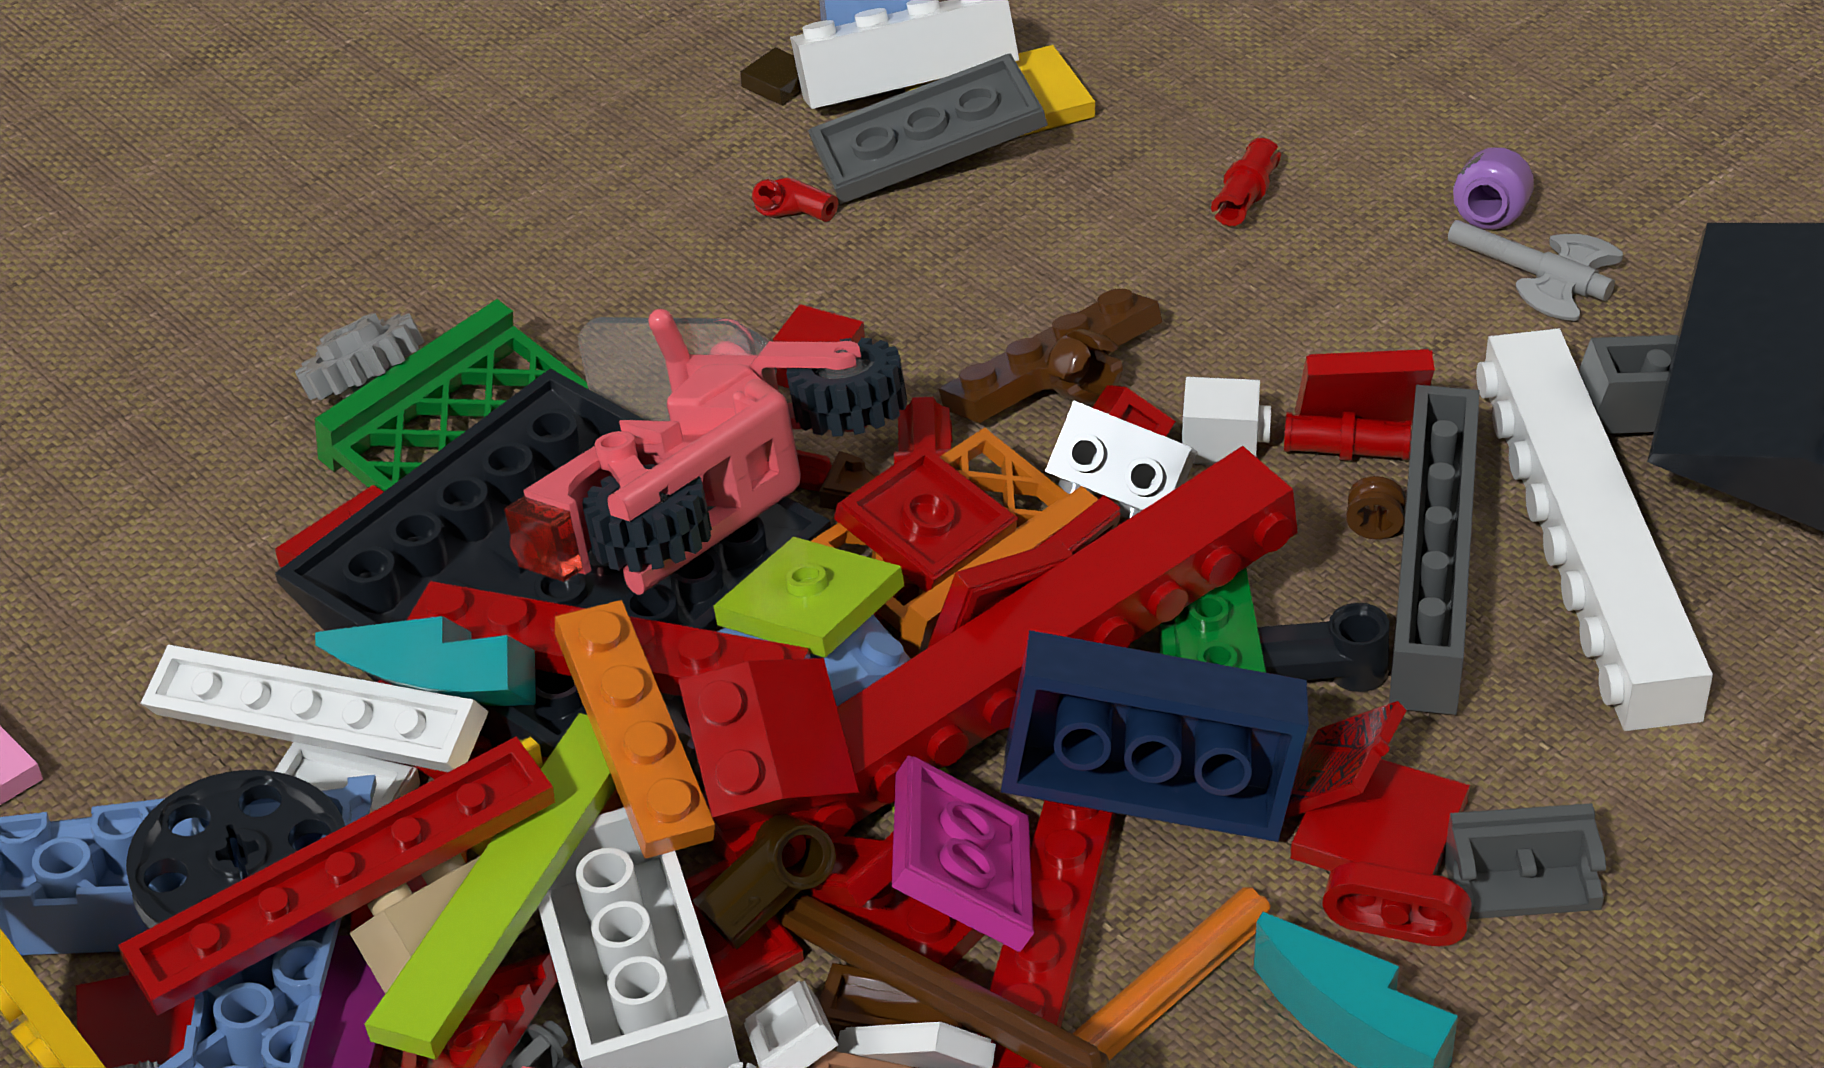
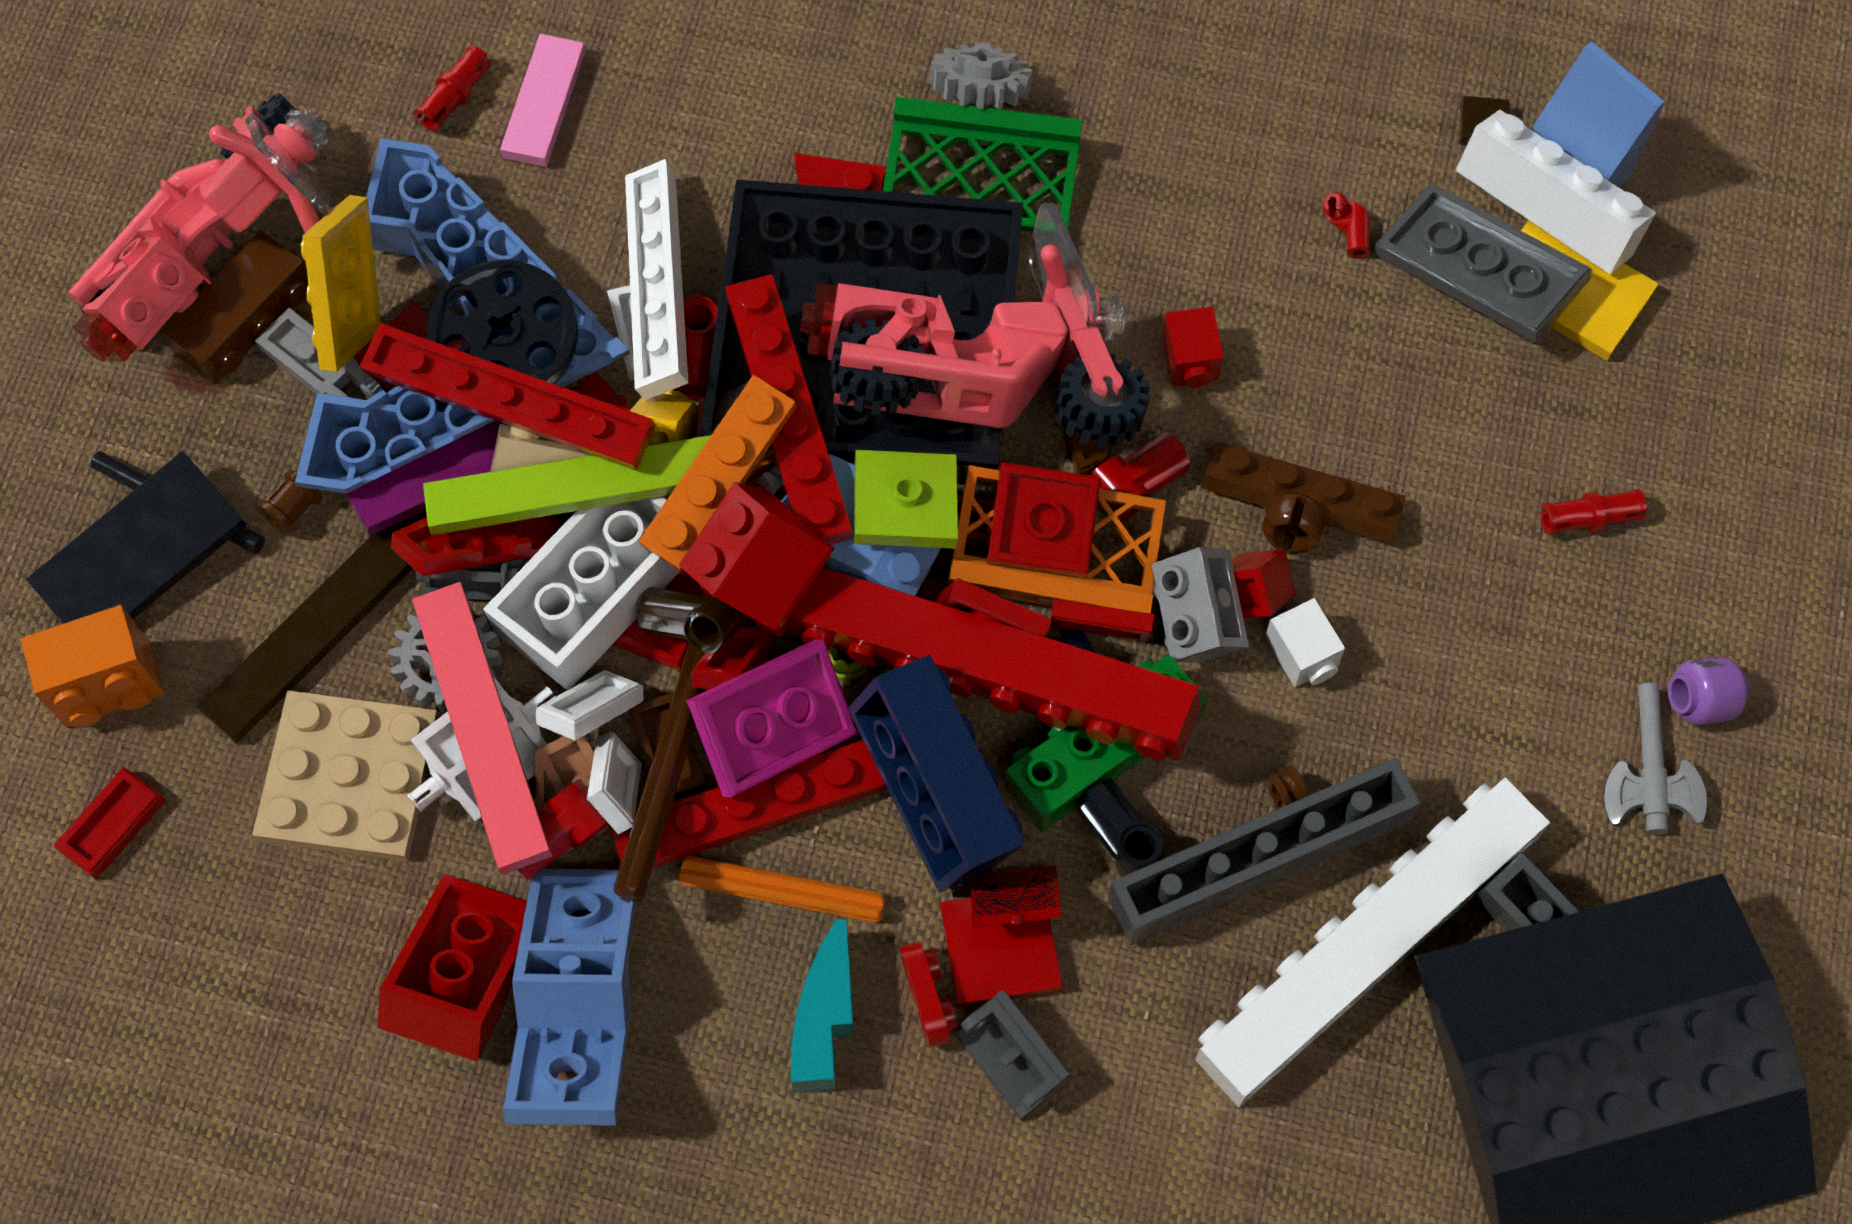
camera: 55 degrees right, 25 degrees up
(438, 659) = (700, 327): teal slope -> none
(1347, 436) = (1349, 727): red pin -> none
(1367, 383) = (1383, 722): red tile -> none

